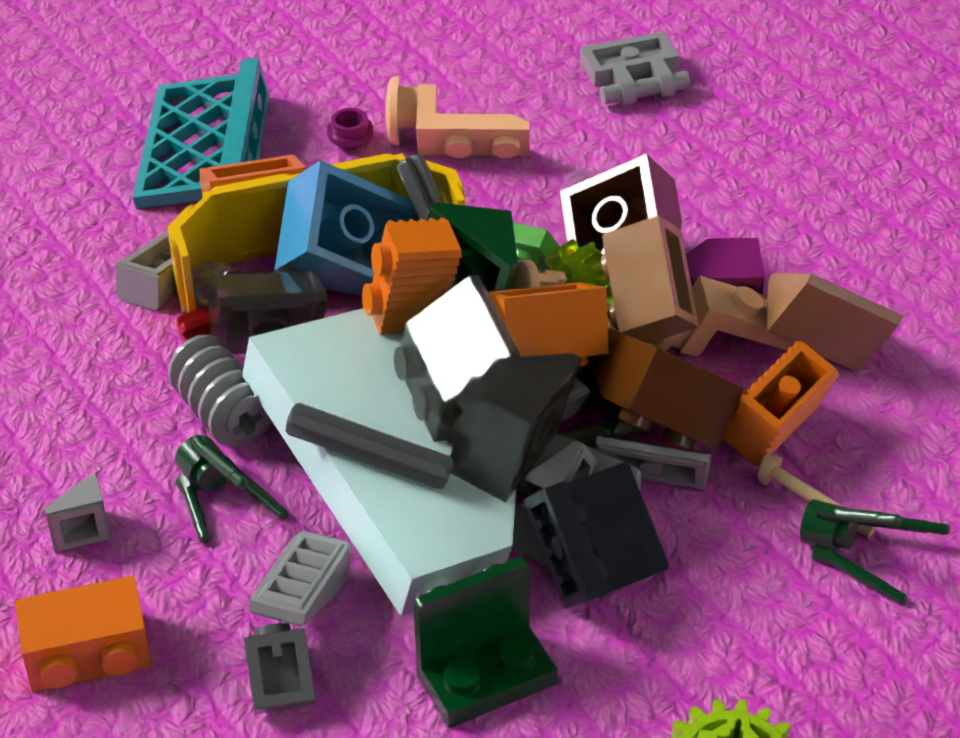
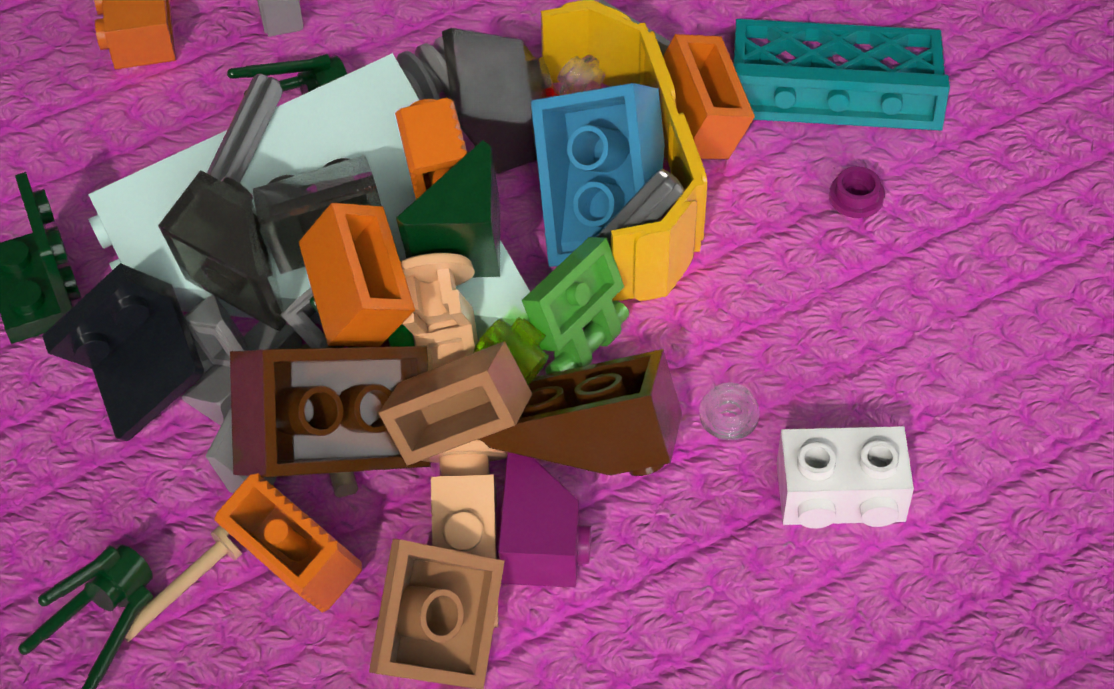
camera: 95 degrees right, 10 degrees up
(279, 668) = (65, 130): dark grey bracket -> none
(302, 579) = (151, 125): light grey slope -> none
(451, 133) = (851, 246): light nougat piece -> none
(632, 58) = (1014, 485): light grey plate -> none
(643, 123) = (844, 476): none -> white brick

